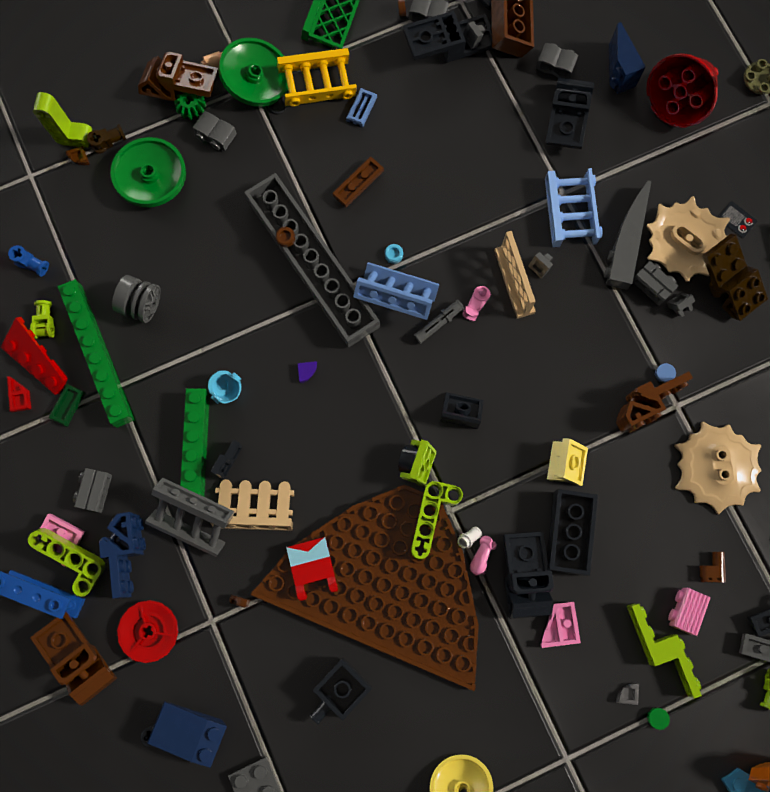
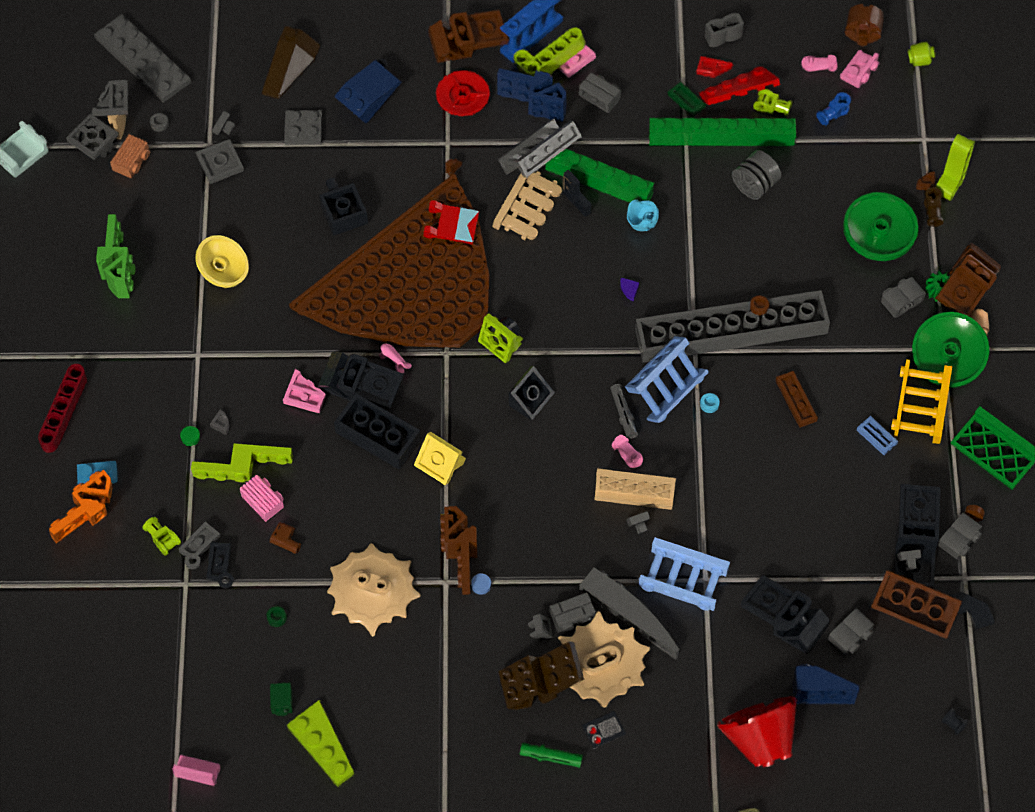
camera: 115 degrees right, 15 degrees down
(430, 521) = (428, 308): lime beam -> none
(466, 539) = (415, 352): white pin -> none

